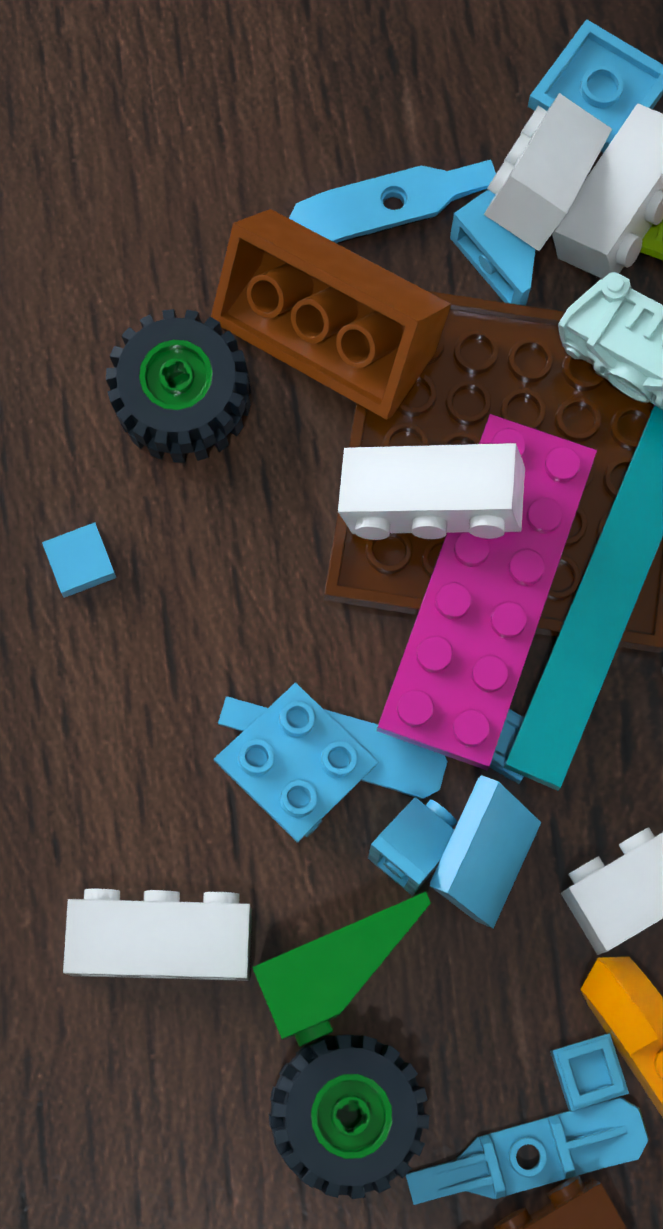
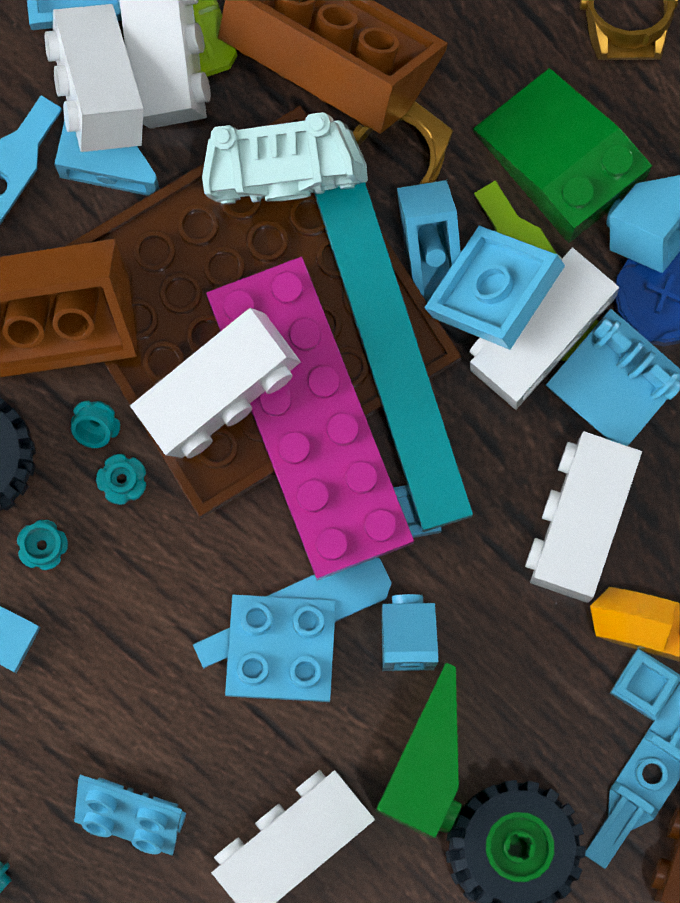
camera: 40 degrees left, 5 degrees up
(34, 771) = (110, 810): none -> medium azure hinge
(175, 496) = (41, 531): none -> teal plate
(288, 526) = (131, 489): none -> teal plate
(304, 448) = (94, 424): none -> teal plate
(485, 852) = (460, 600): medium azure tile -> none

